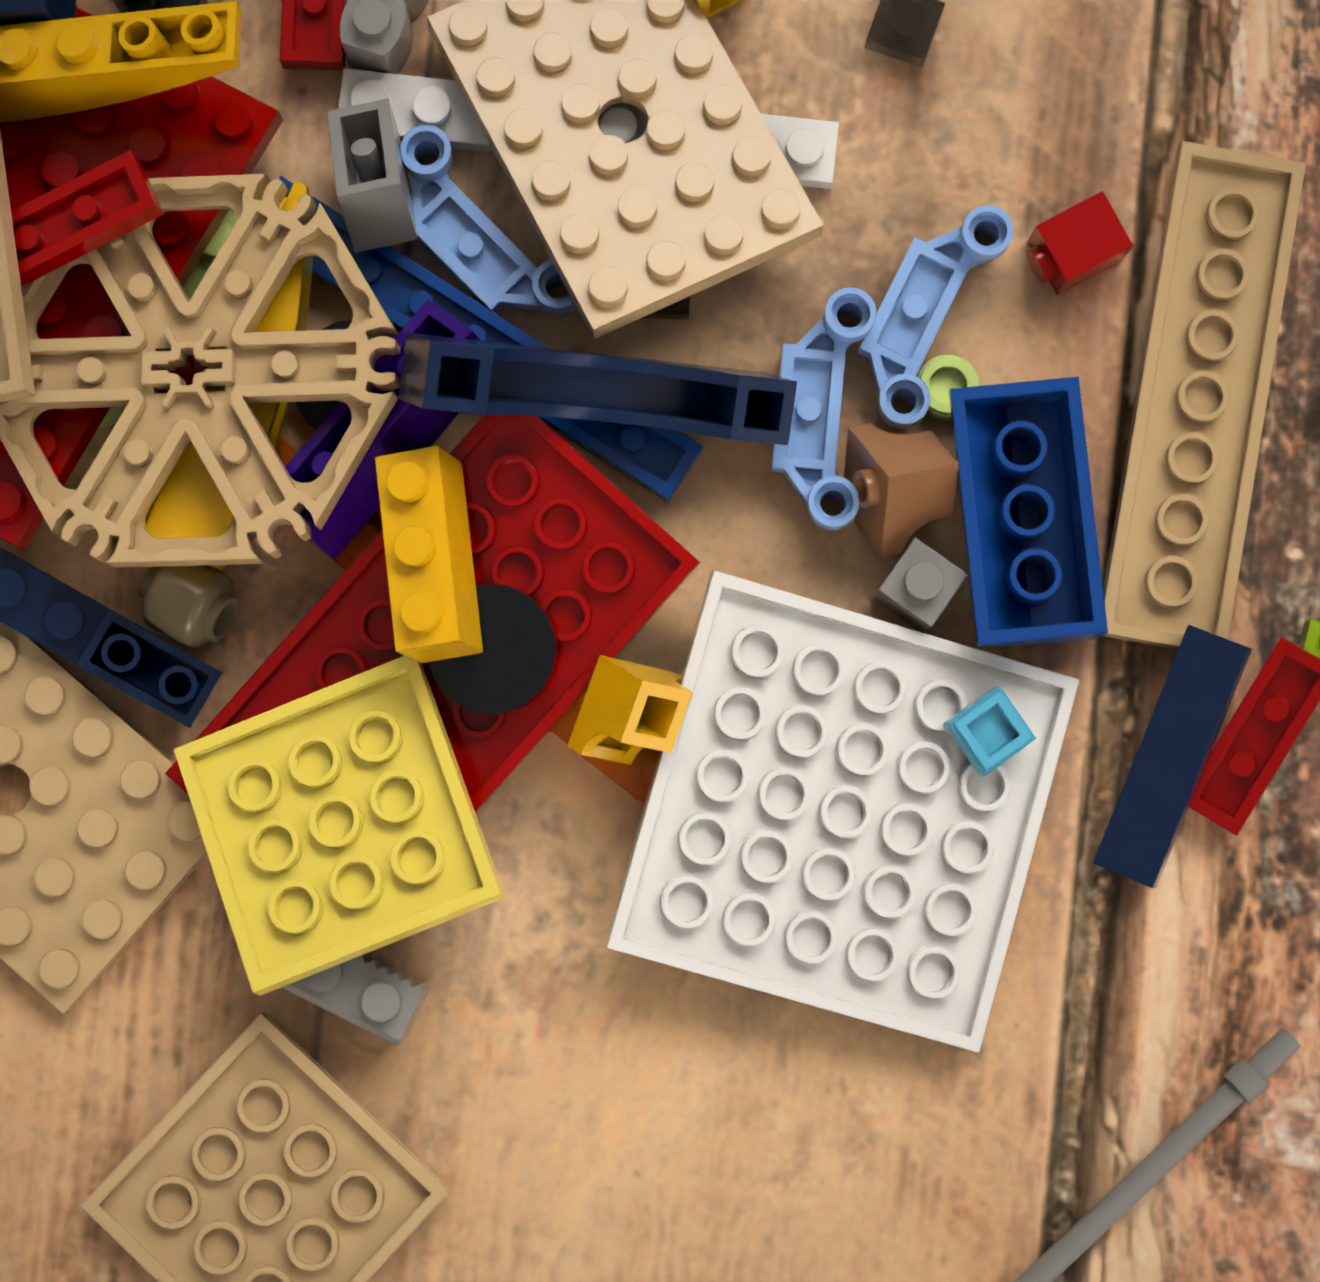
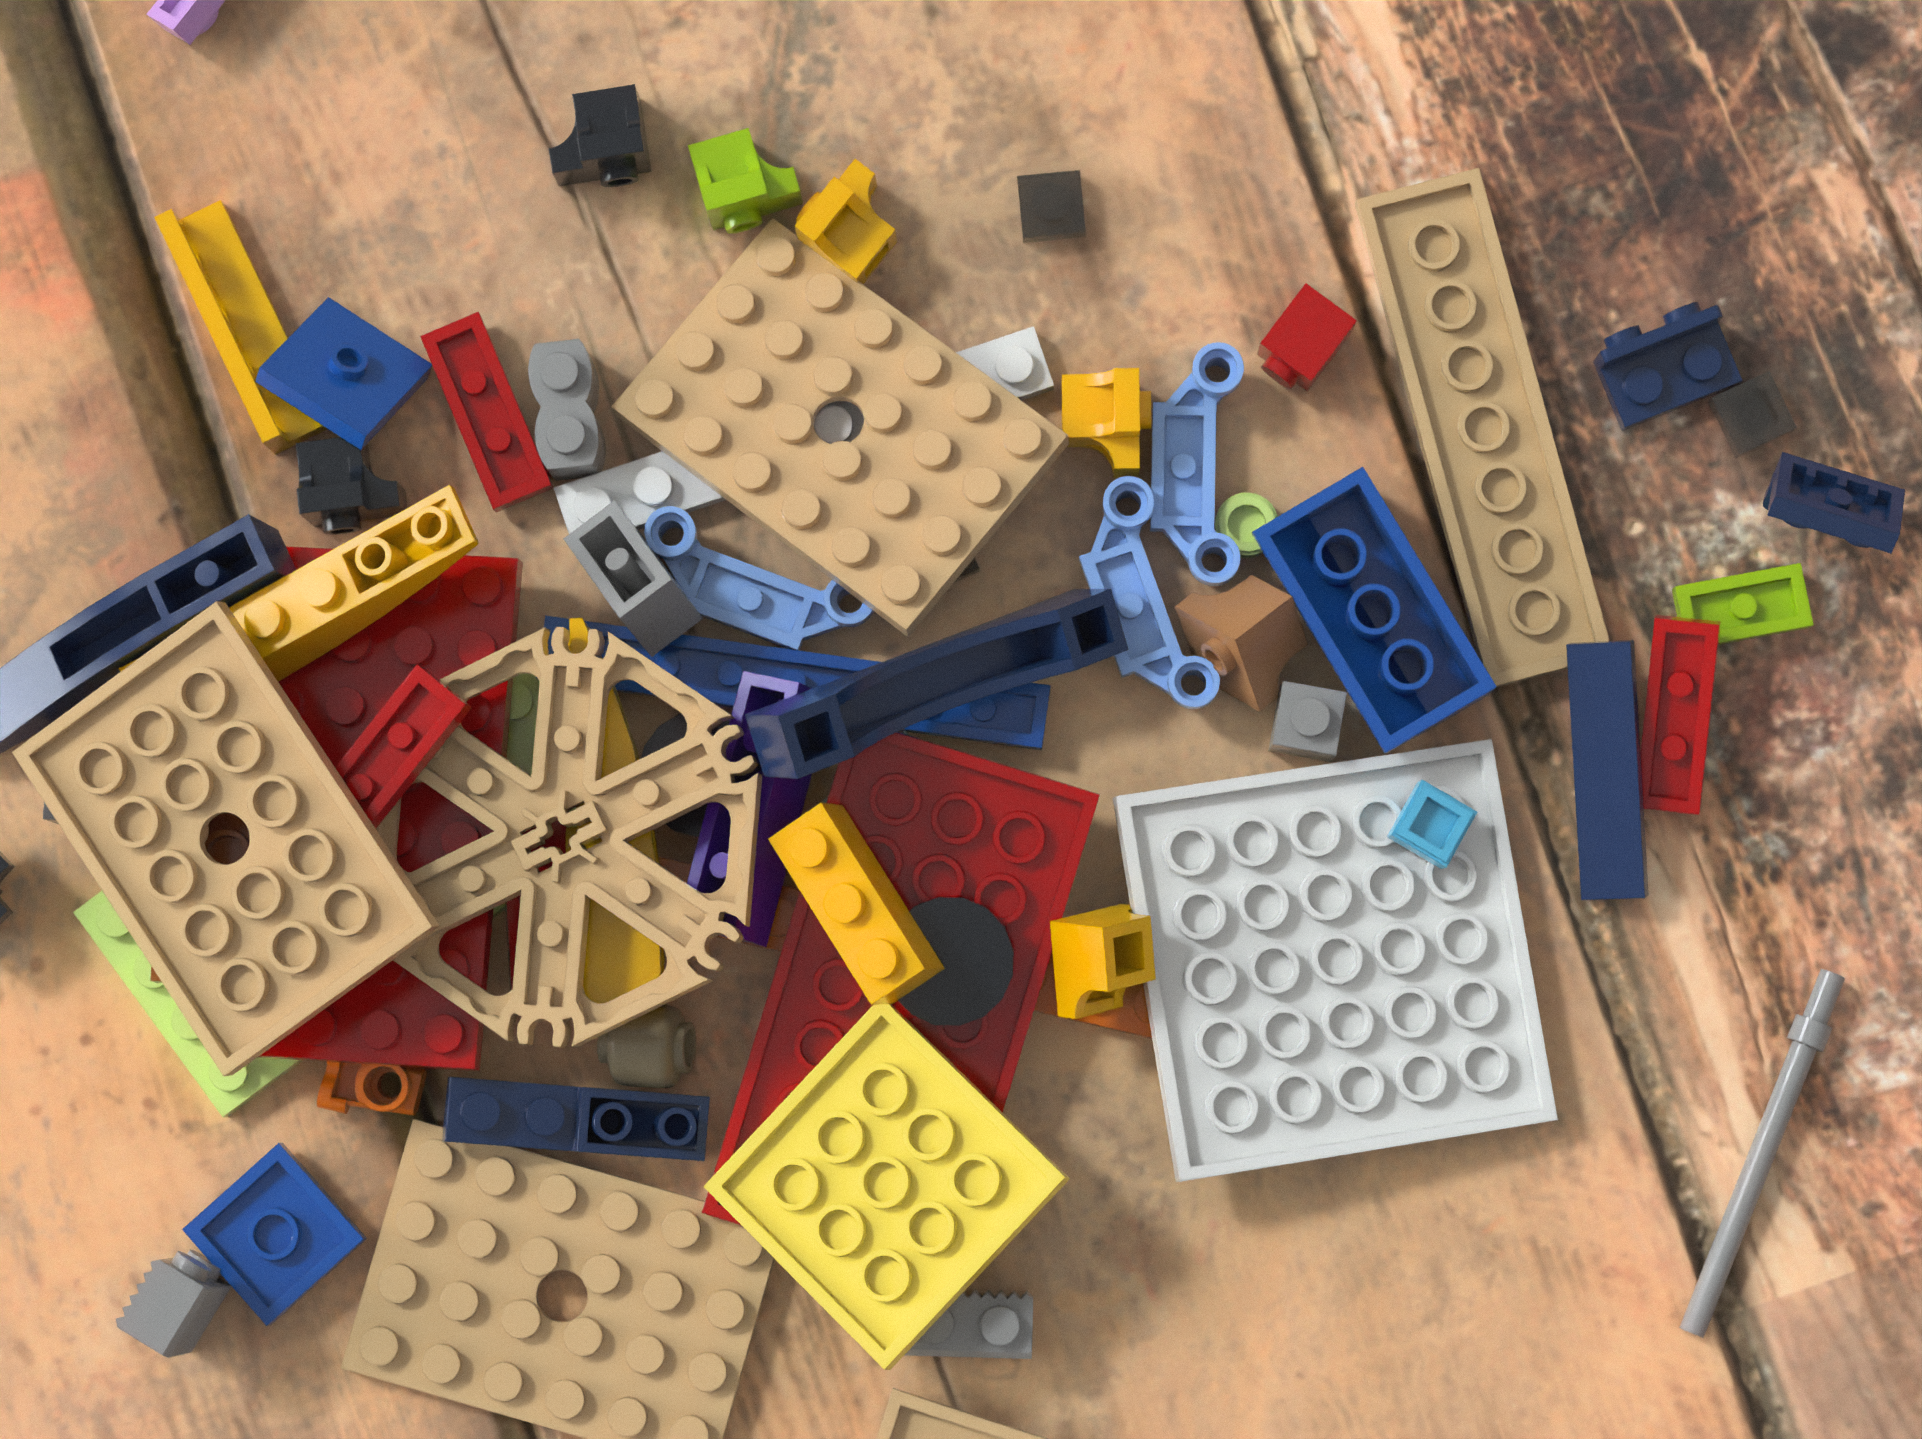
camera: 15 degrees left, 0 degrees up
(867, 227) = (1107, 415): none -> yellow brick

